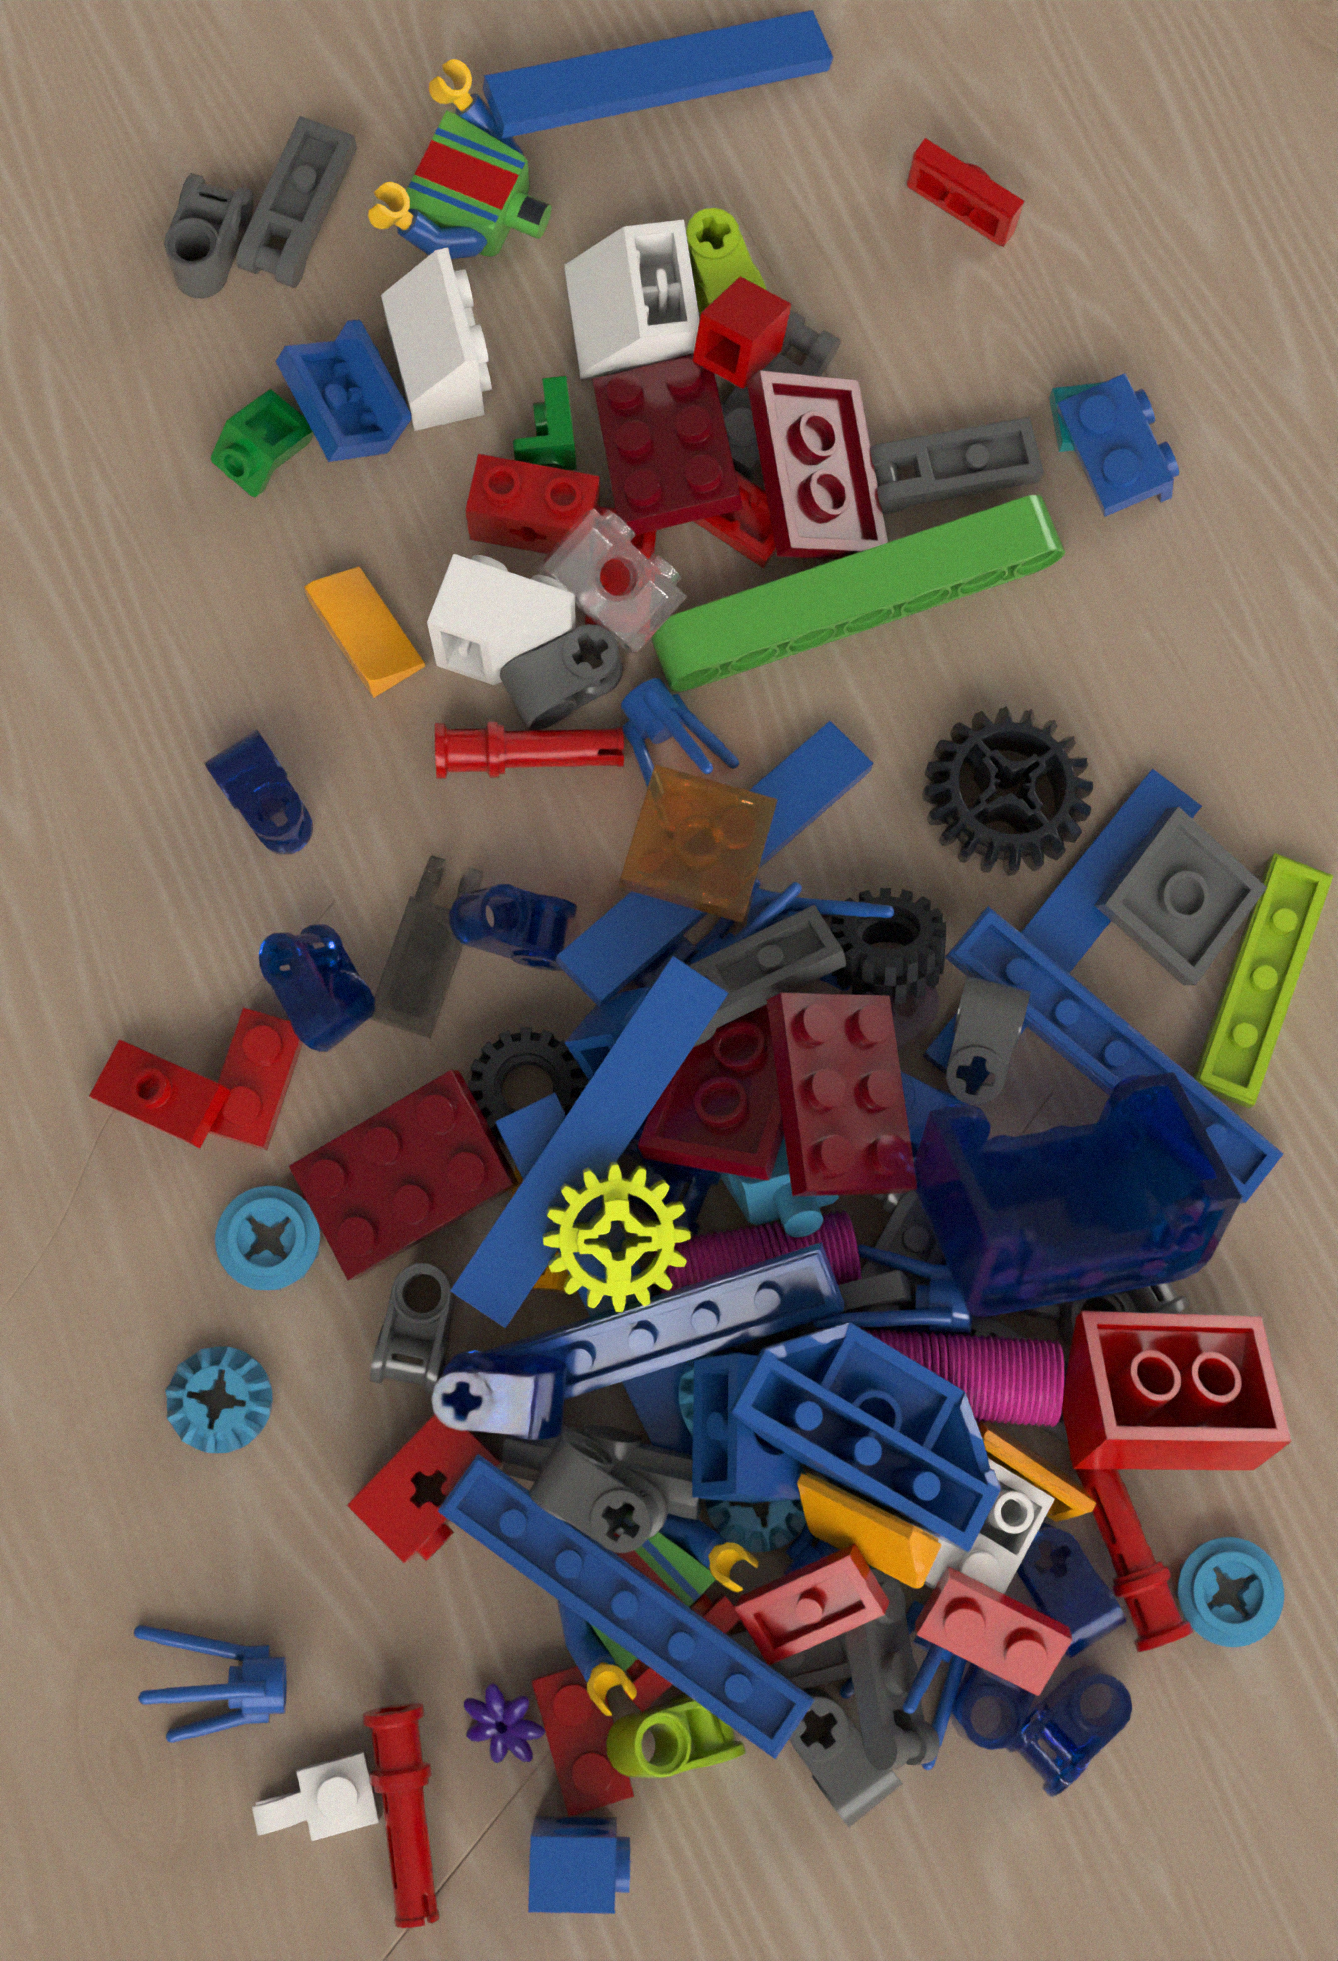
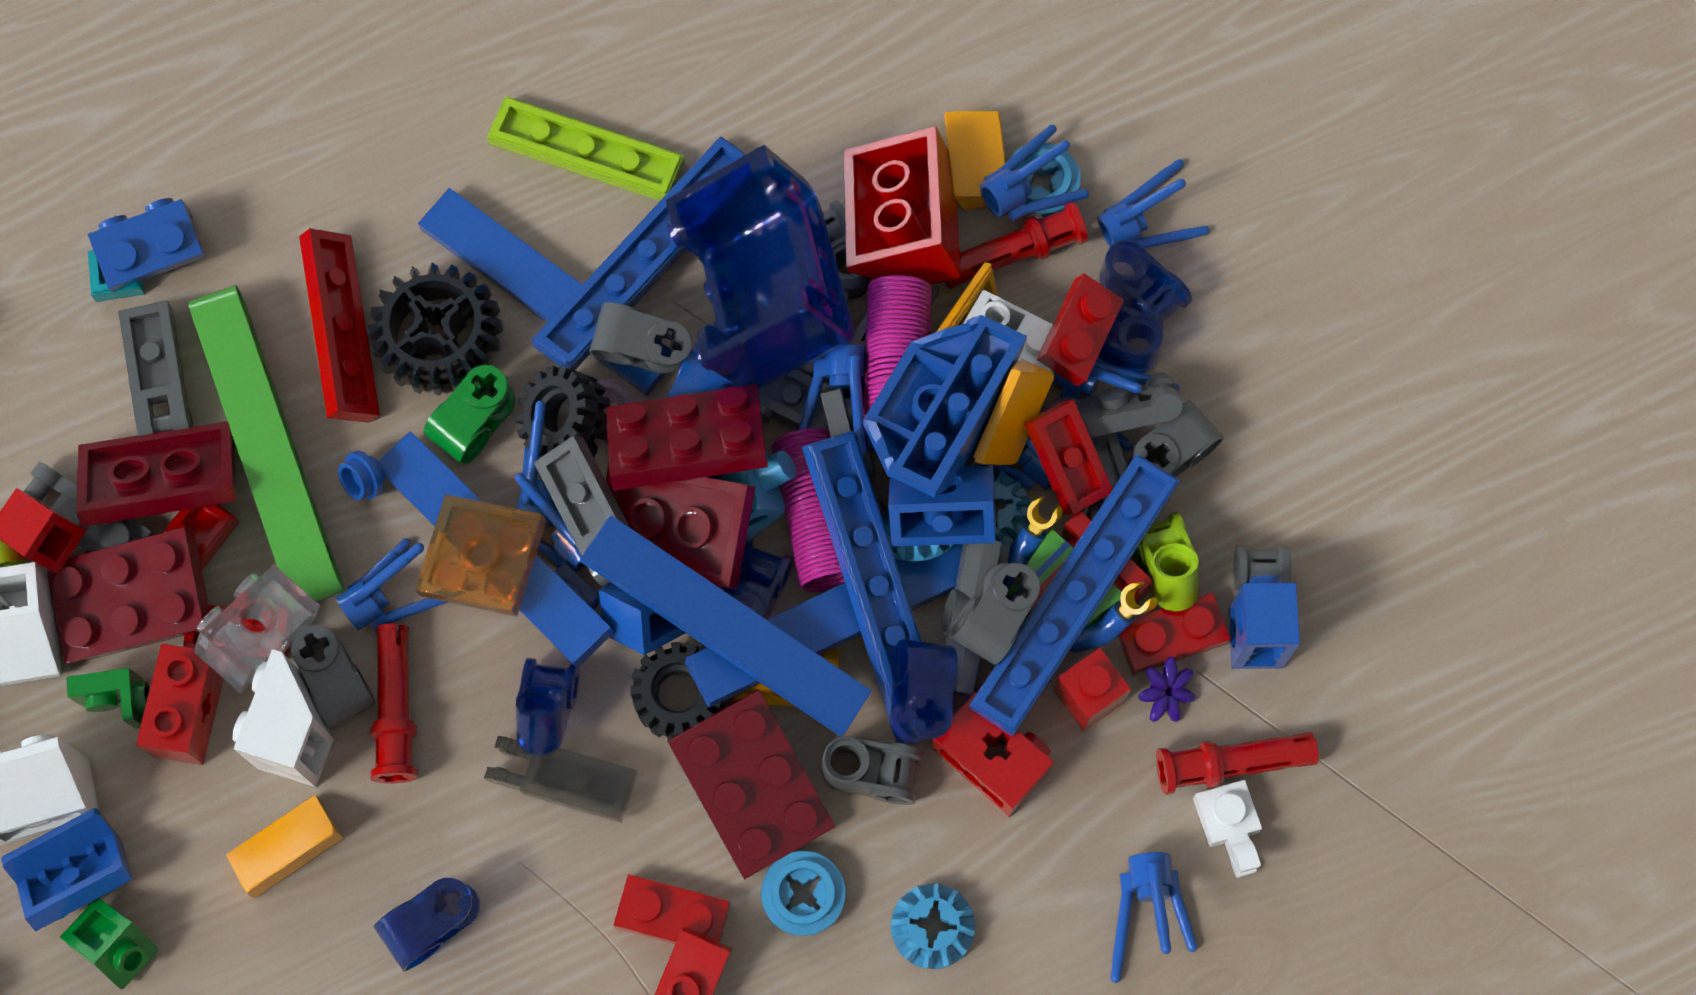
camera: 85 degrees left, 5 degrees down
(321, 988) = (599, 857): clear blue piece -> none
(504, 1621) = (1091, 689): none -> red brick
(617, 1265) = (817, 587): neon yellow gear -> none
(664, 1869) = (1260, 563): none -> dark grey bush
(814, 706) = (361, 476): none -> blue plate
(887, 830) = (467, 419): none -> green piece
(1012, 674) = (339, 326): none -> red plate
(1070, 1589) = (1044, 283): clear blue piece -> none
(1164, 1706) = (1127, 220): none -> blue plant
(1180, 896) = (522, 202): dark grey plate -> none
(1202, 1539) = (1008, 187): none -> blue plant
(1257, 1501) = (974, 152): none -> light orange slope

